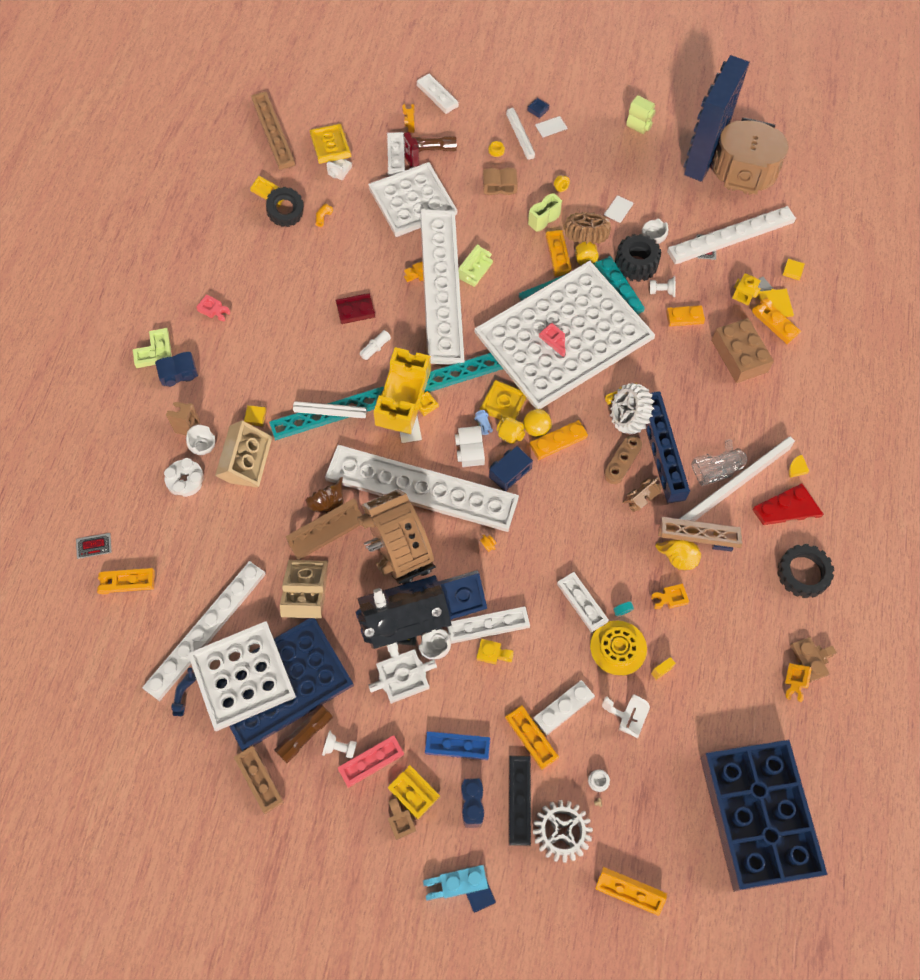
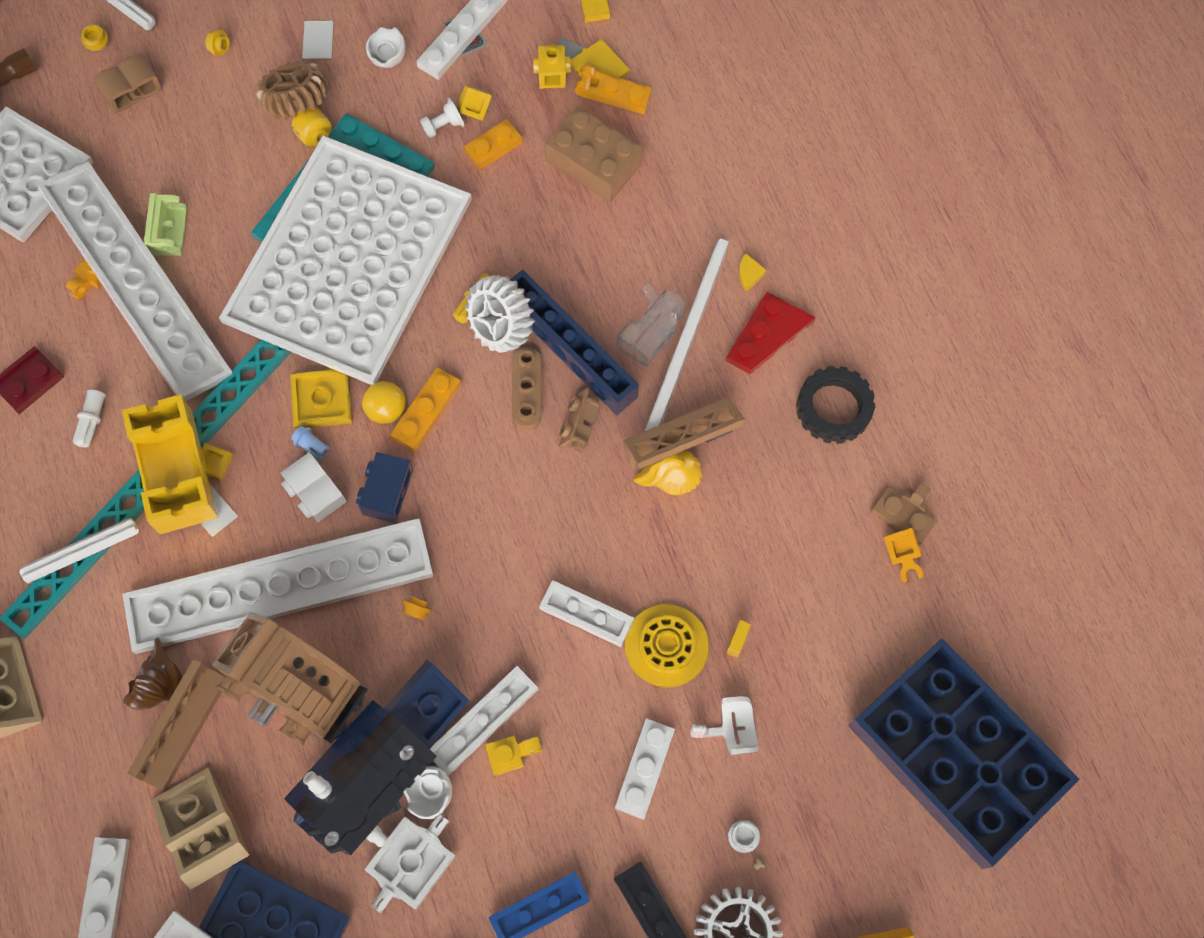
camera: 35 degrees left, 5 degrees up
(510, 430) = (354, 433): yellow head -> none
(531, 737) = (627, 834): light orange tile -> none
(545, 212) = (219, 96): yellowish green brick -> none
(554, 338) = (339, 272): coral tile -> none
(558, 252) = (271, 145): light orange tile -> none
(623, 608) = (644, 590): teal tile -> none
(638, 246) = (380, 79): black tyre -> none
(672, 596) = (695, 536): light orange plate -> none
(687, 286) = (473, 102): none -> yellow tile

